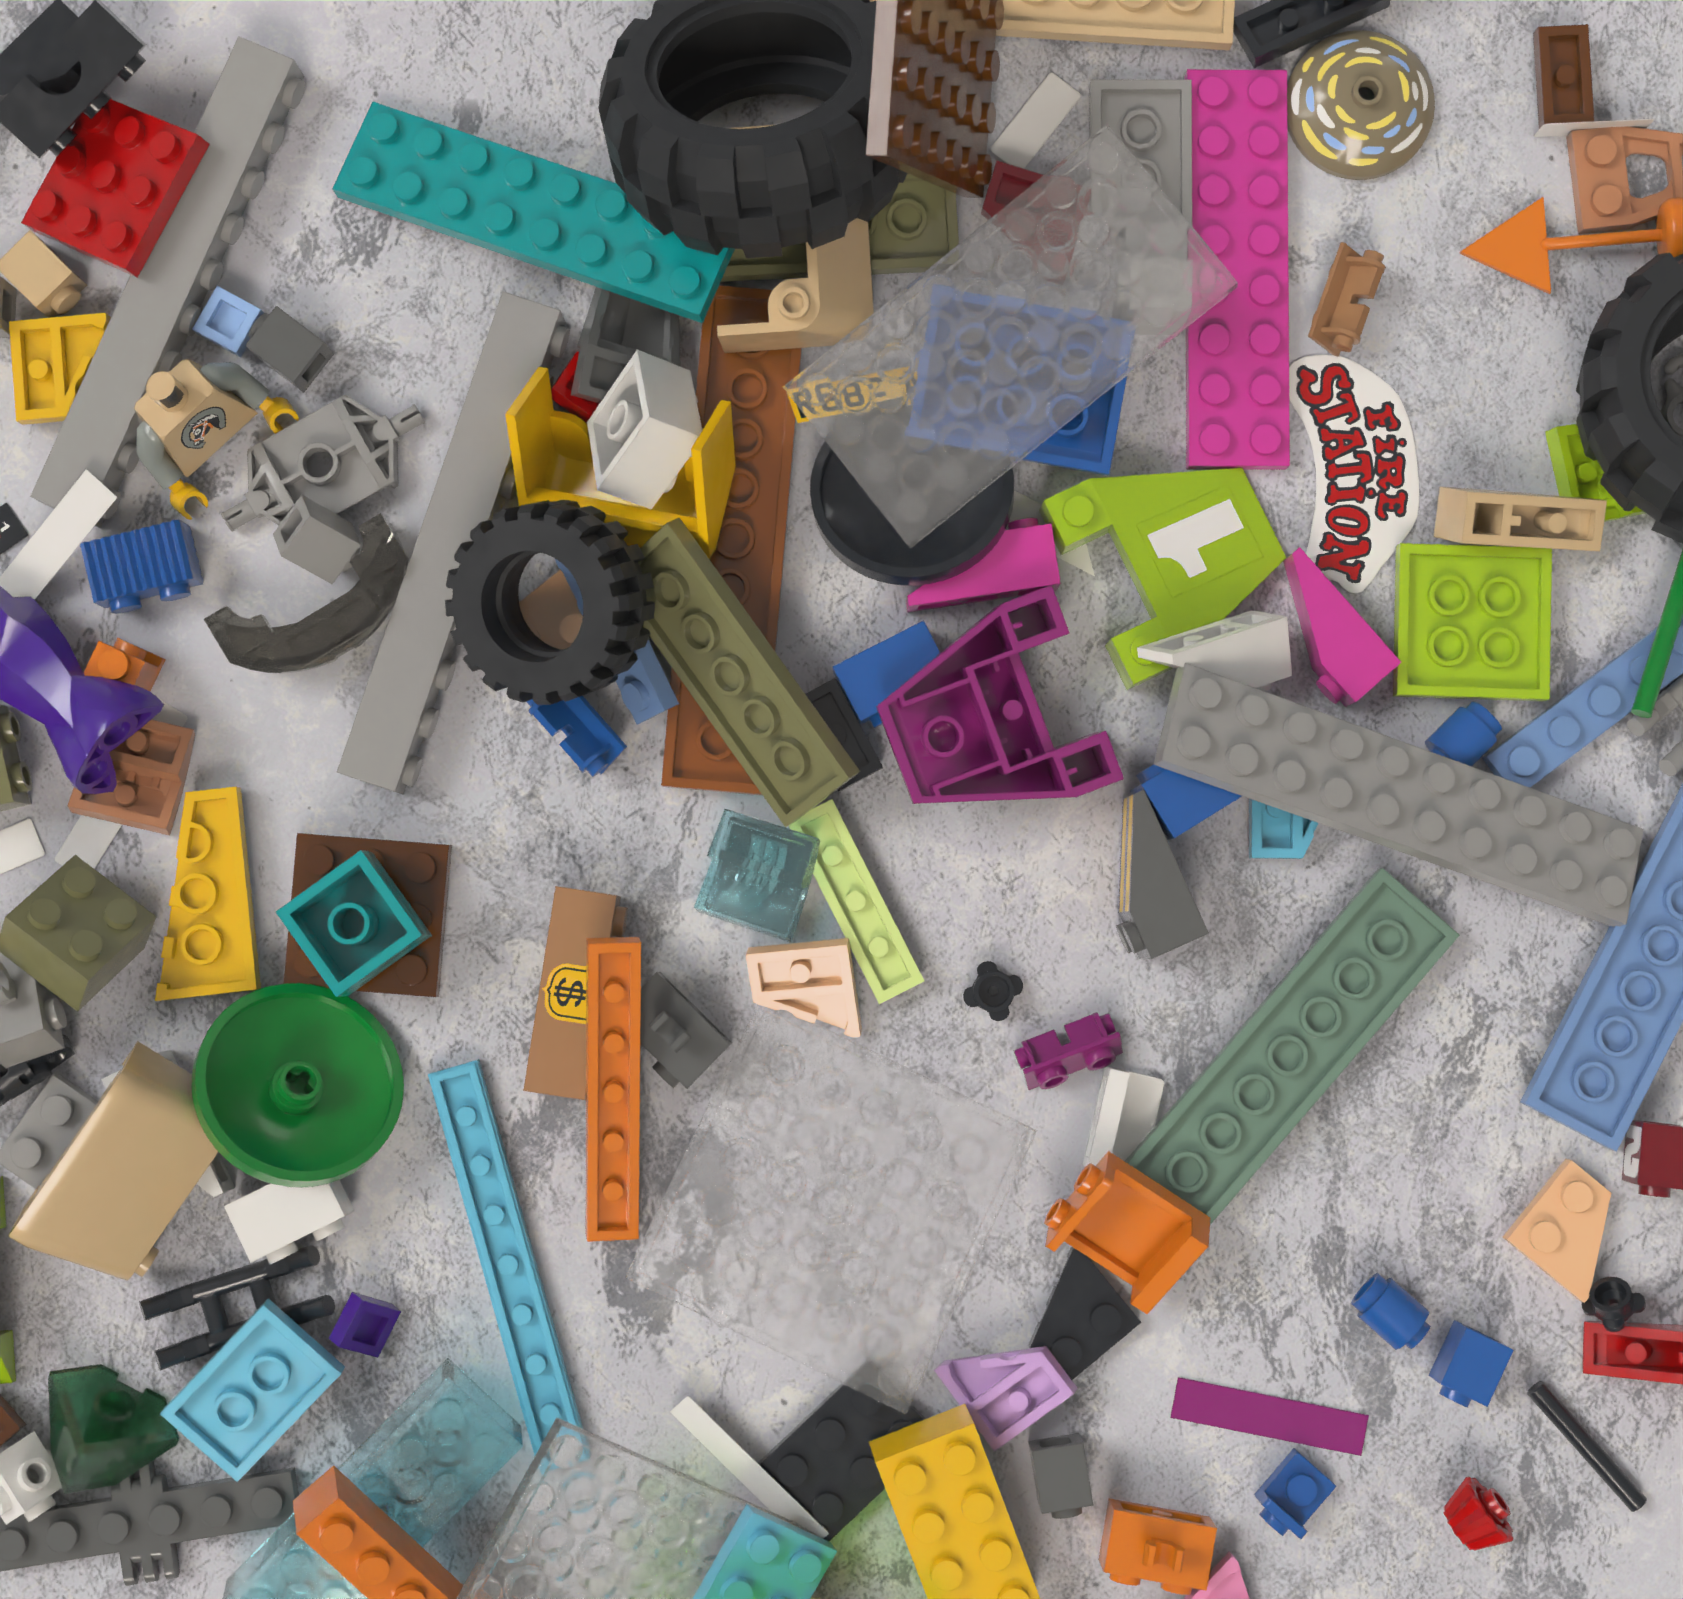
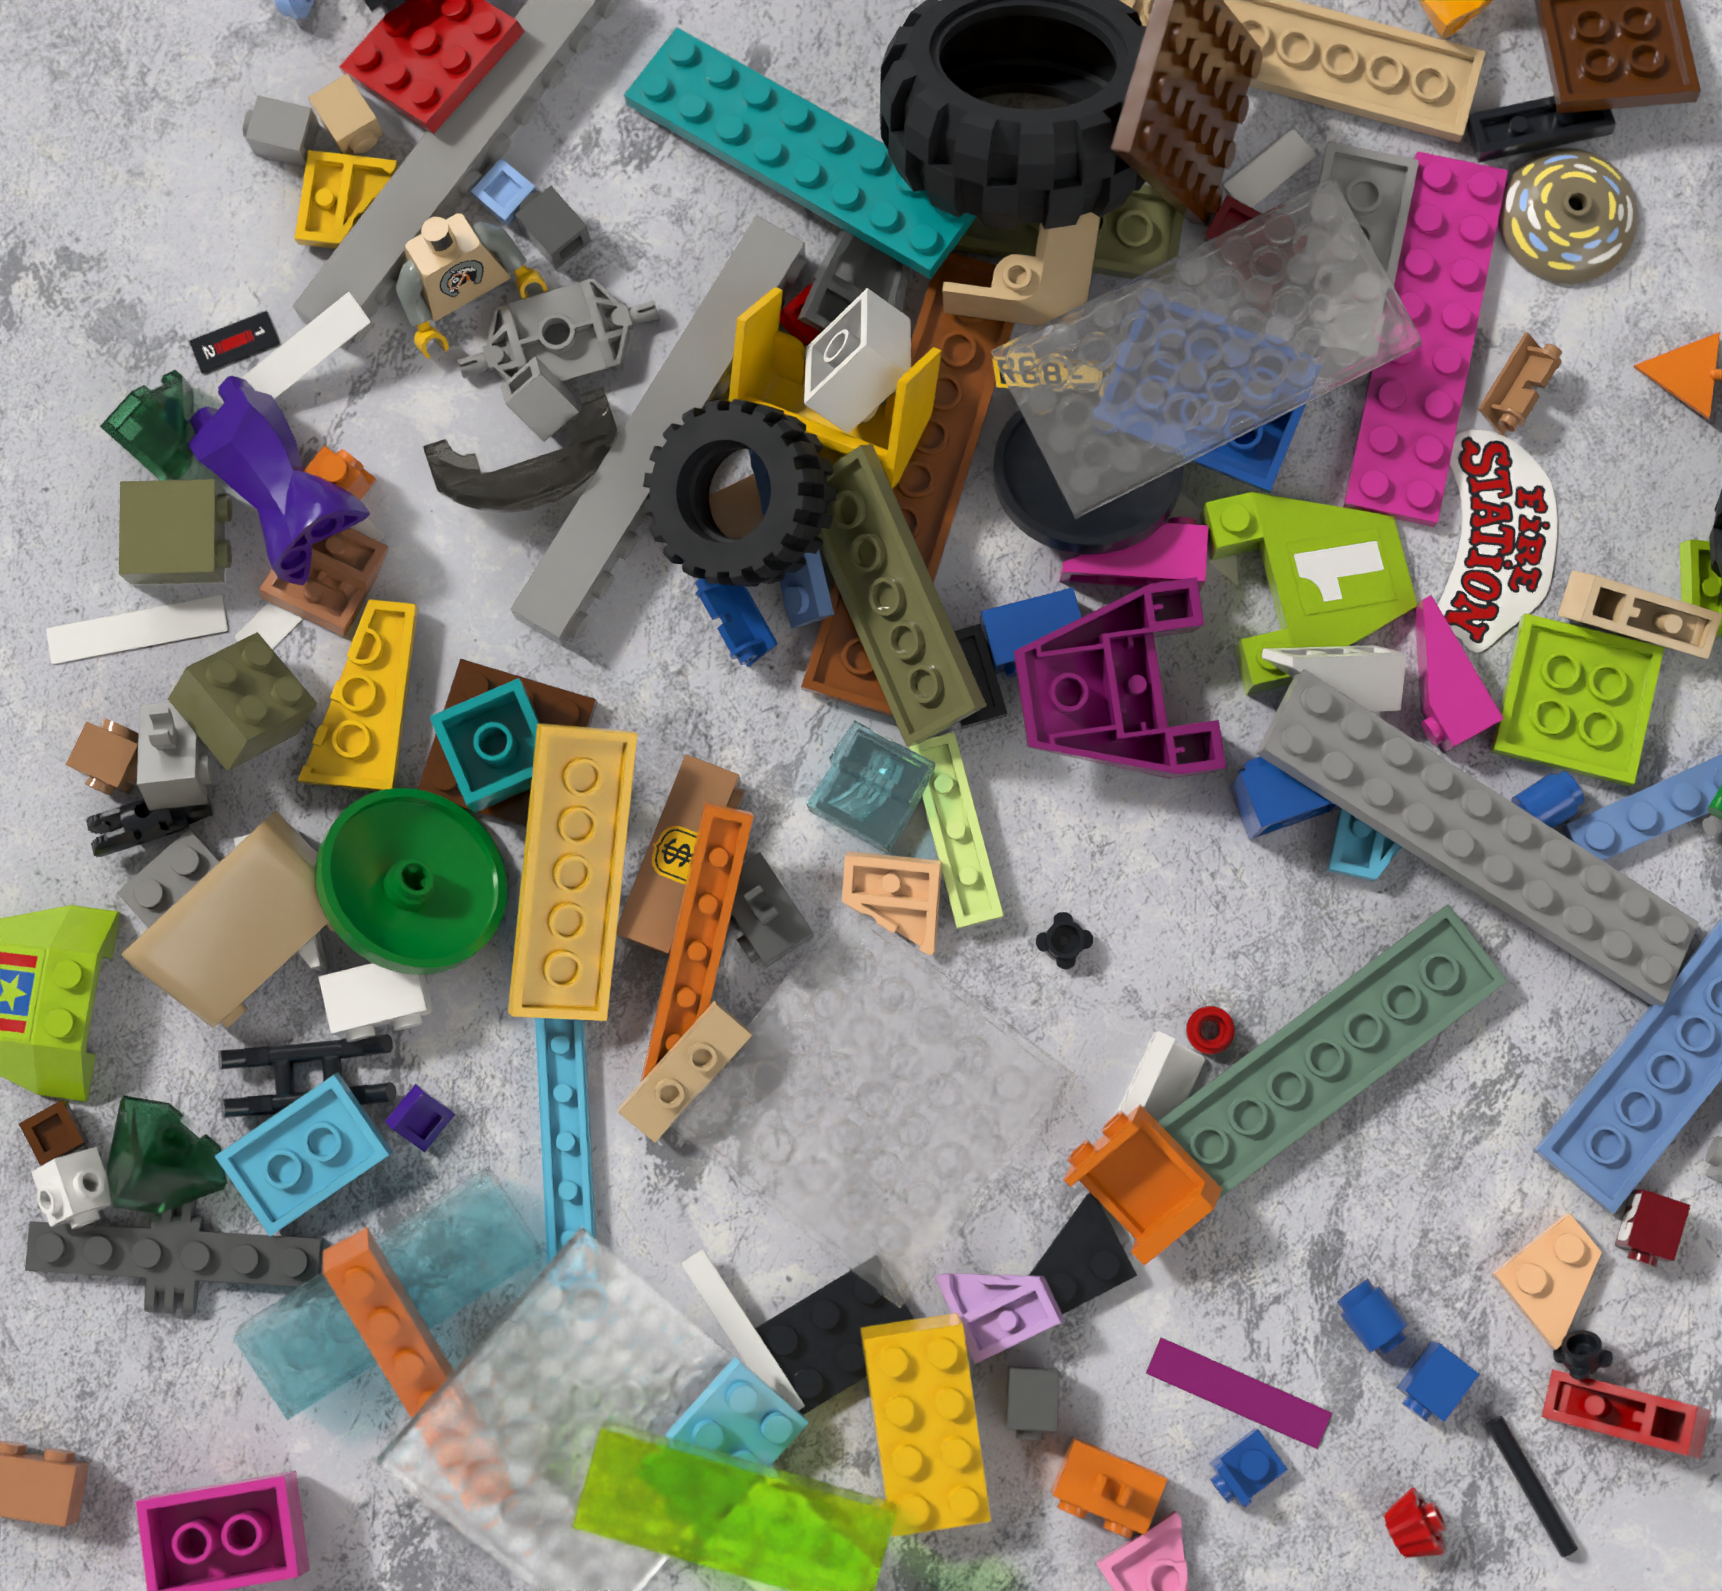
camera: 15 degrees right, 5 degrees down
(142, 566) = (376, 390): blue brick -> none
(464, 1040) = (572, 872): none -> yellow plate
(625, 1219) = (687, 1065): none -> tan plate
(1088, 1048) = (1145, 1010): magenta hinge -> none
(1152, 891) = (1232, 882): dark grey slope -> none
(1177, 1059) = (1225, 1030): none -> red plate

